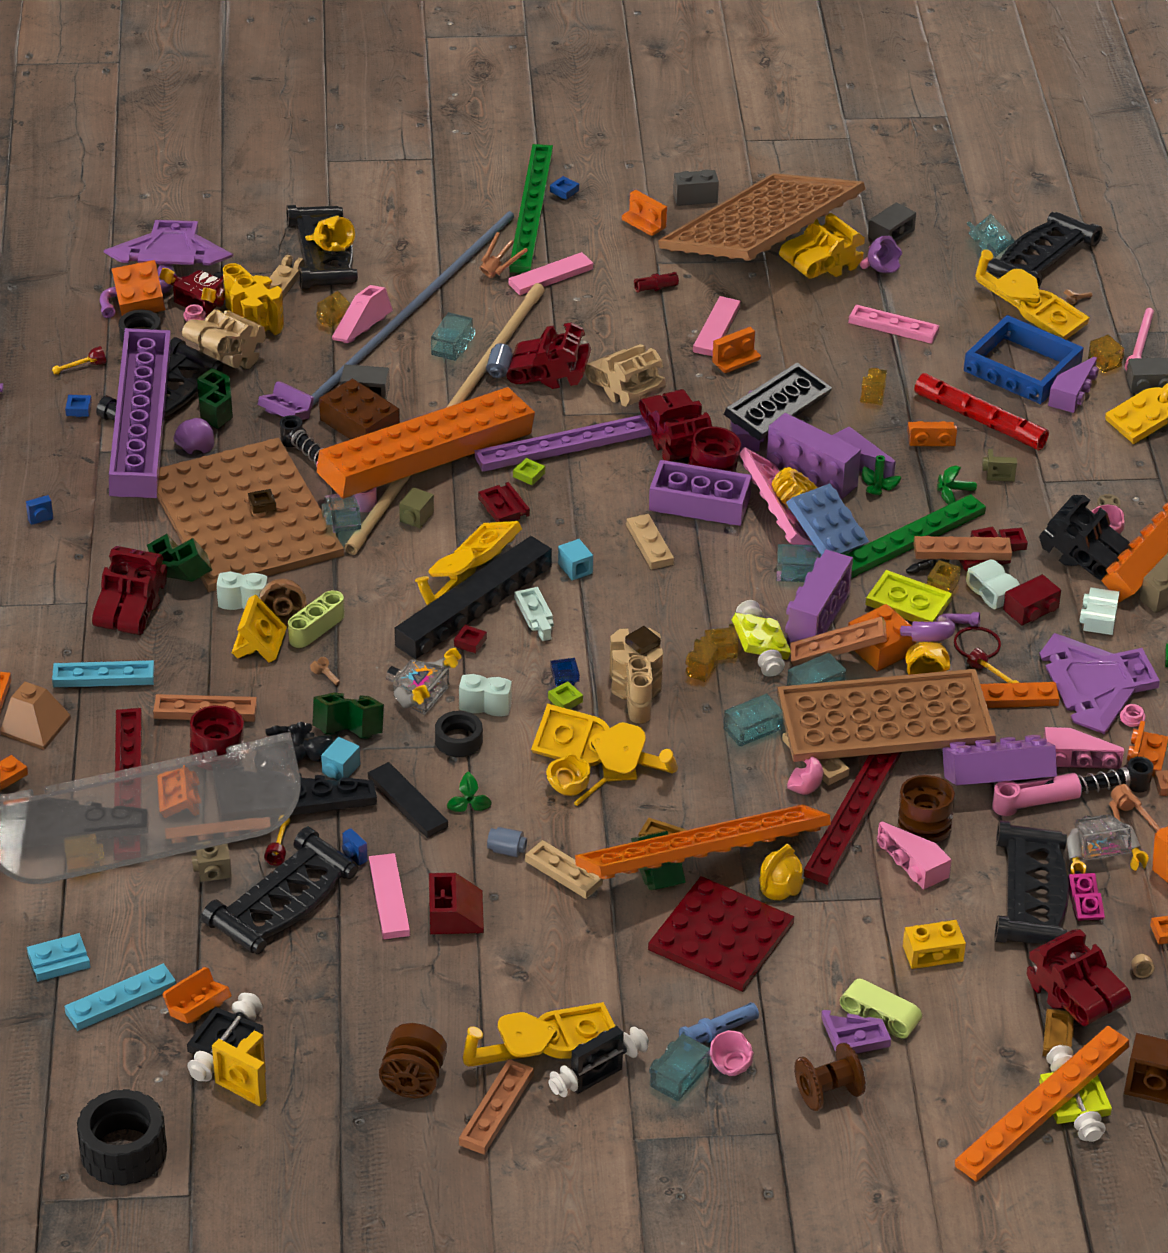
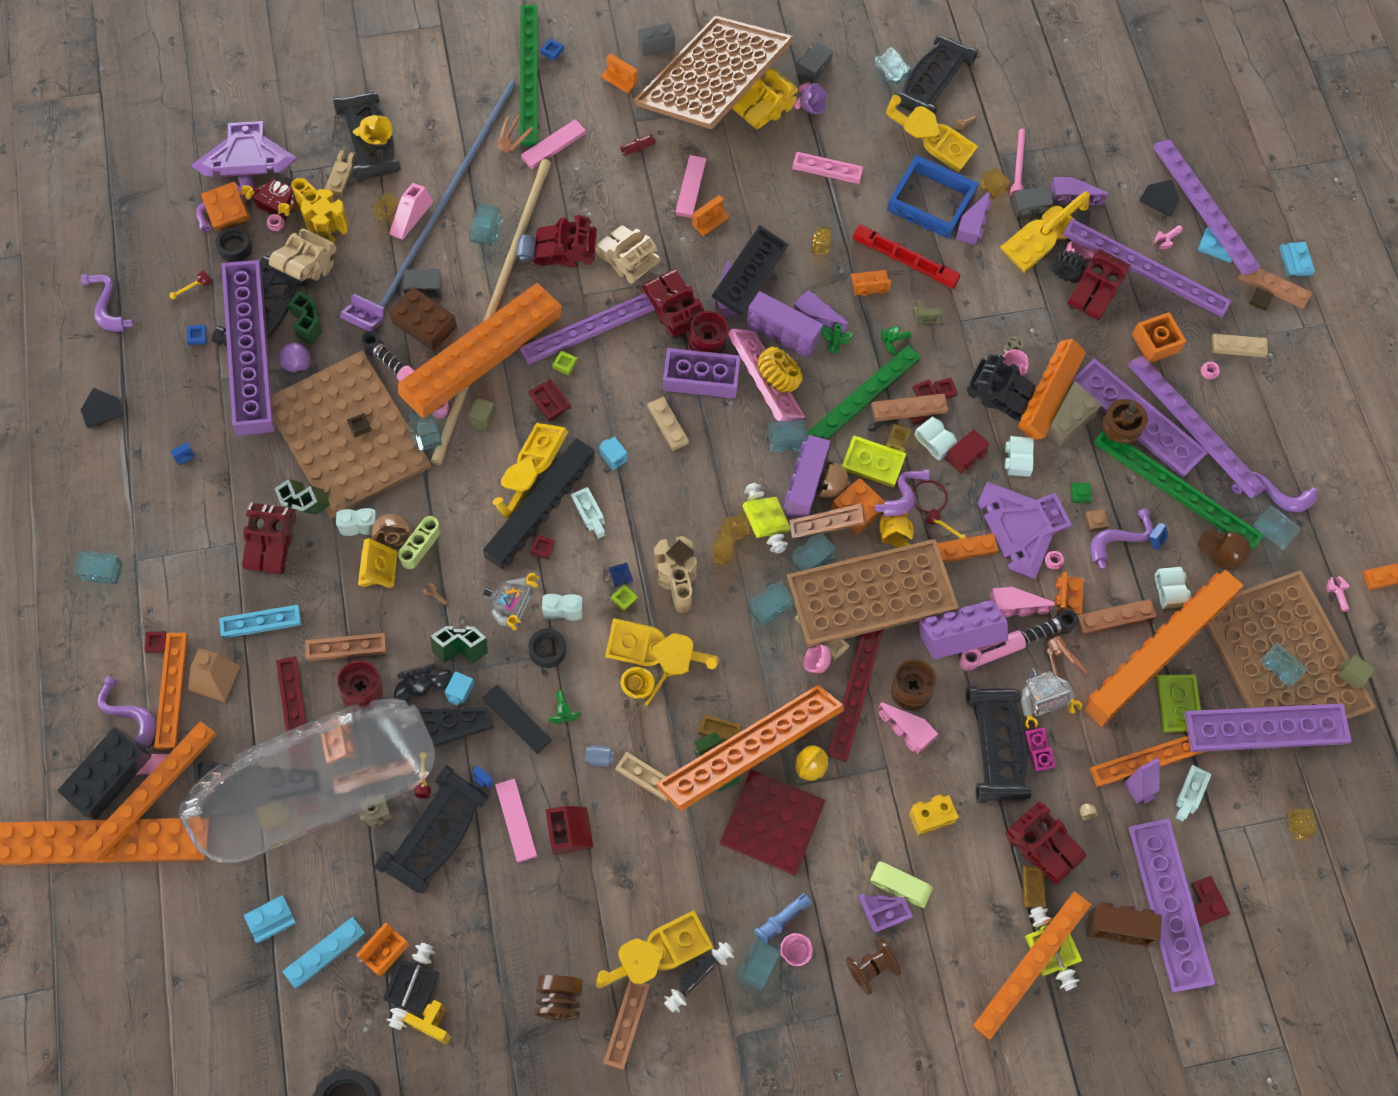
camera: 10 degrees left, 25 degrees up
(827, 520) = (805, 399): medium blue plate -> none
(853, 603) = (833, 481): none -> medium nougat cylinder

